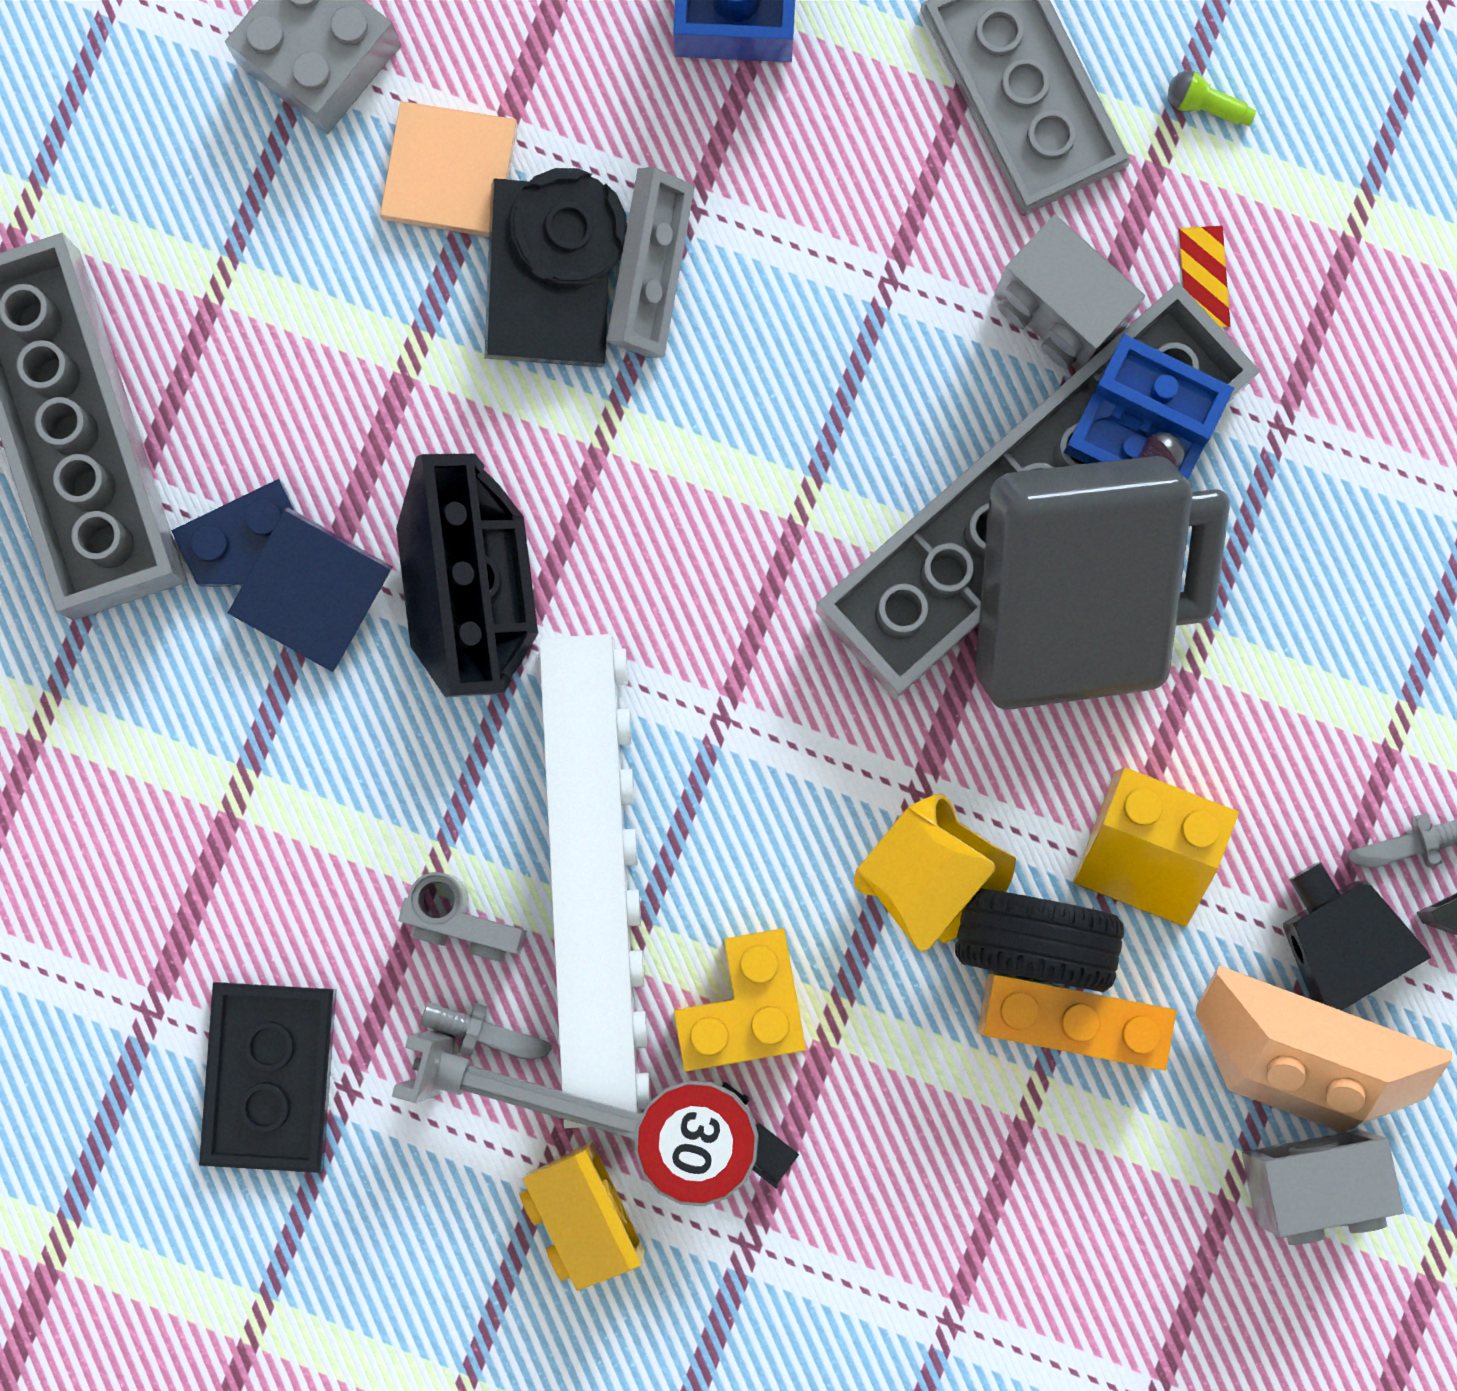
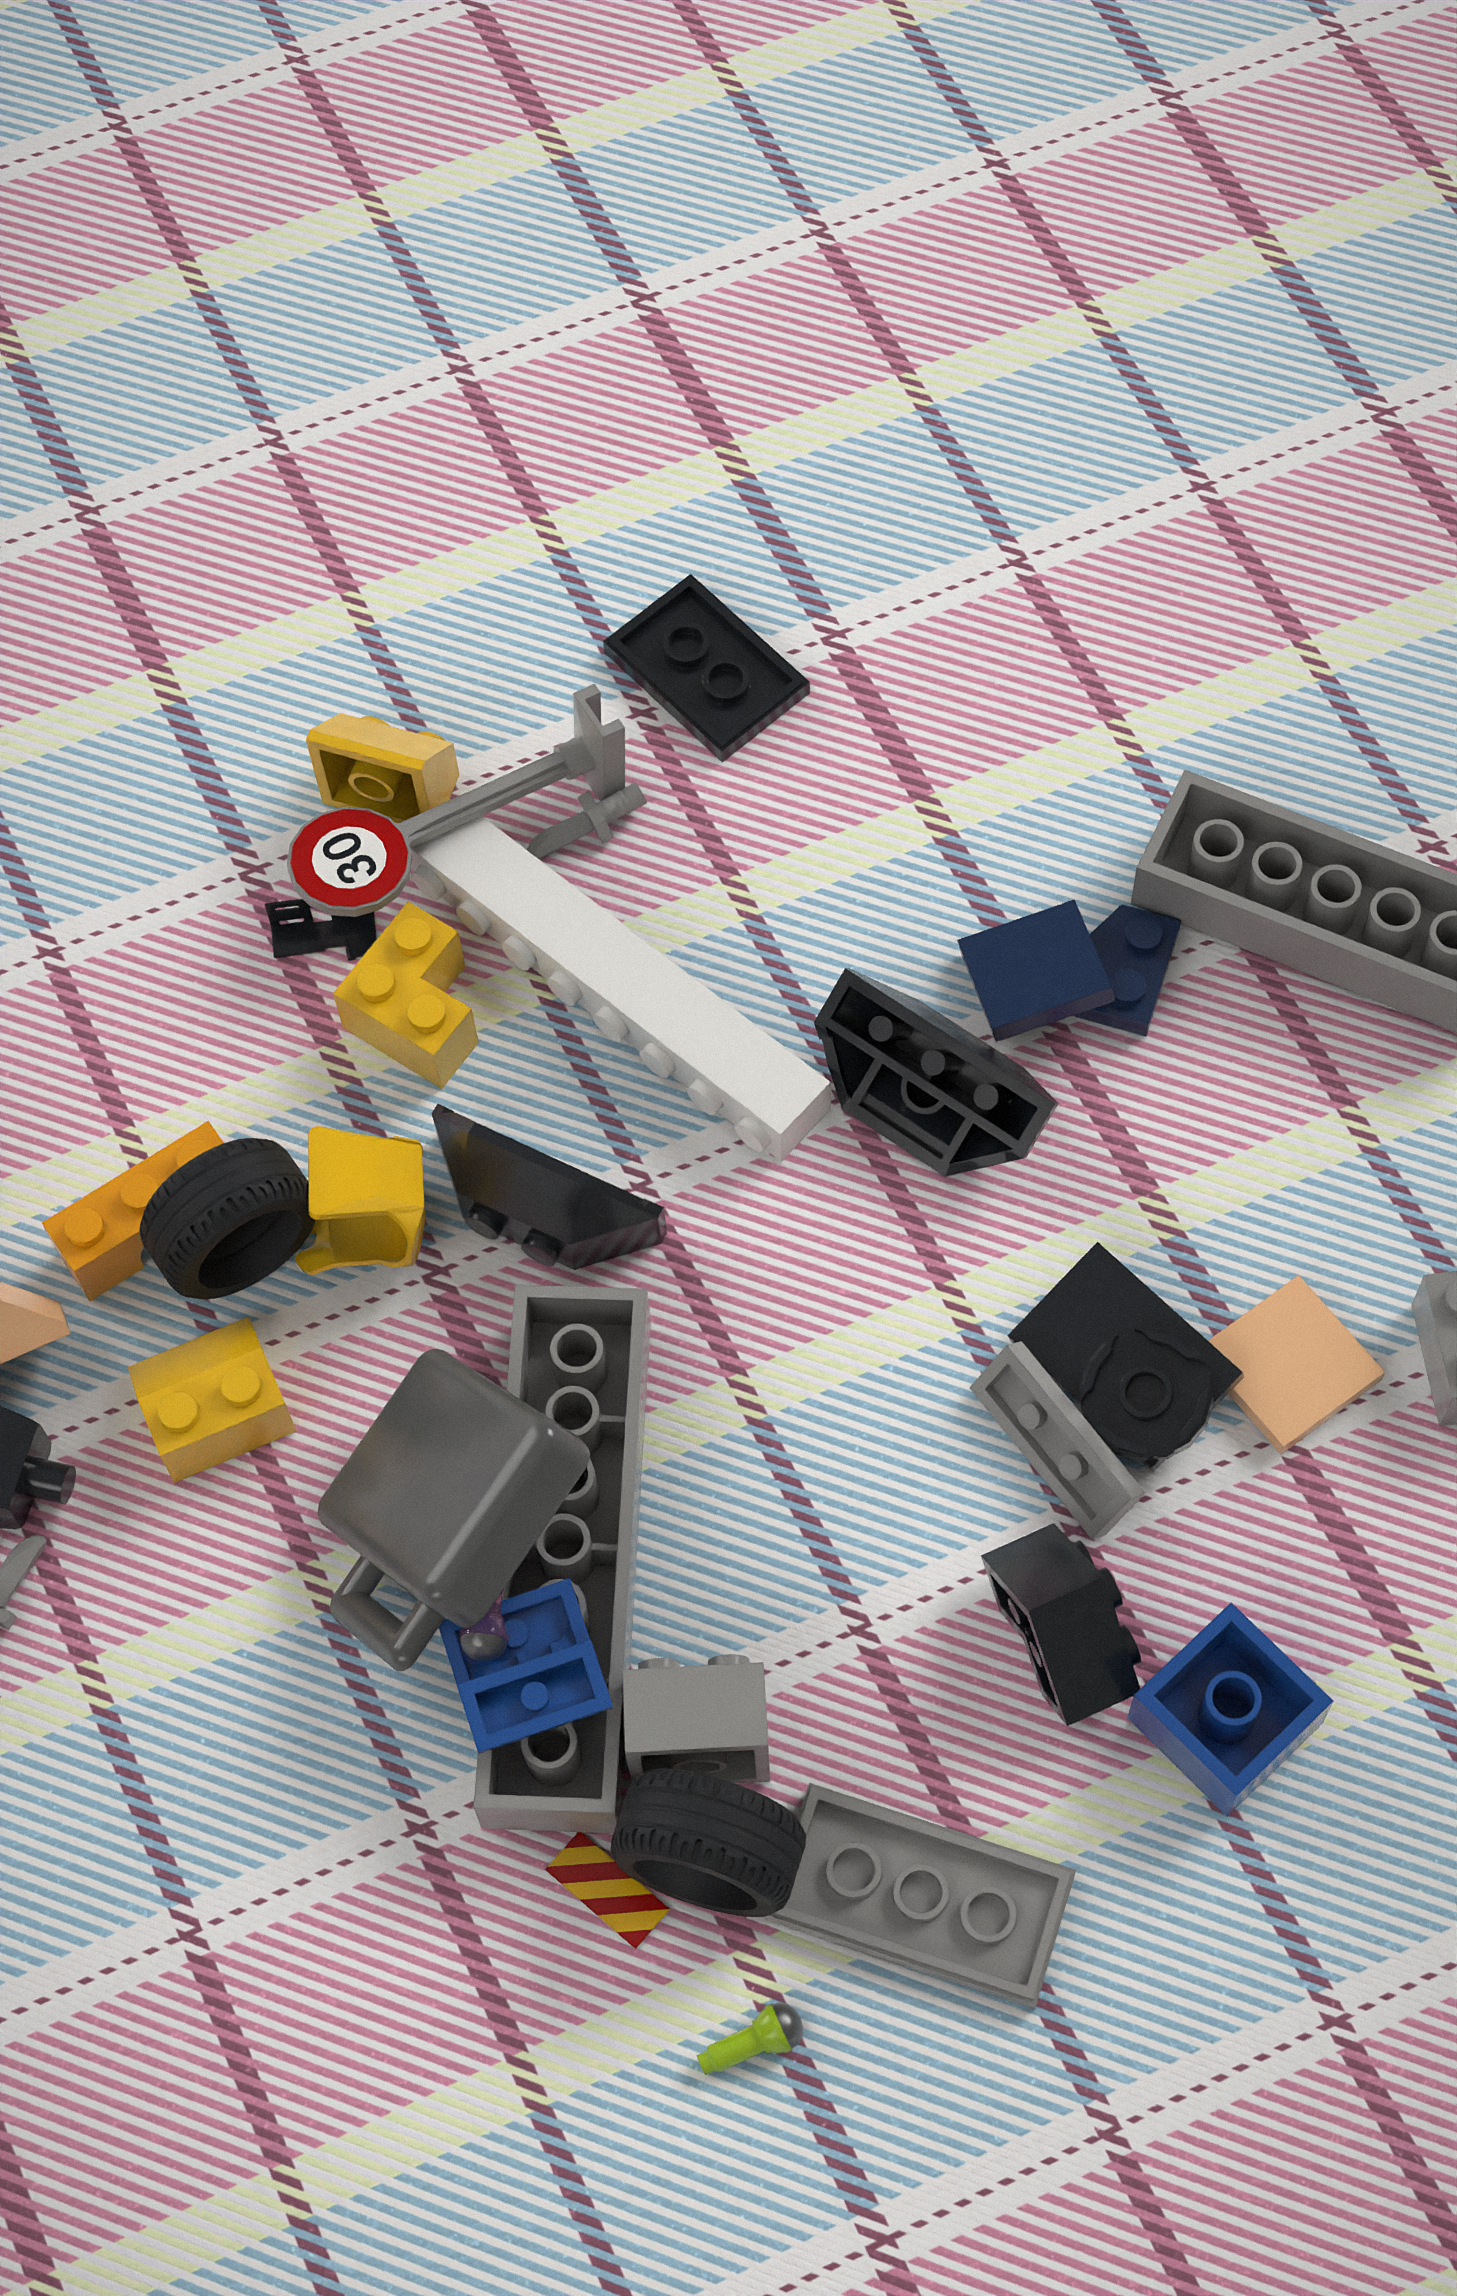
camera: 135 degrees right, 20 degrees down
(487, 937) = (674, 867): light grey plate -> none
(773, 142) = (1066, 1621): none -> black brick
(810, 767) = (541, 1200): none -> black wedge
(1139, 209) = (708, 1842): none -> black tyre

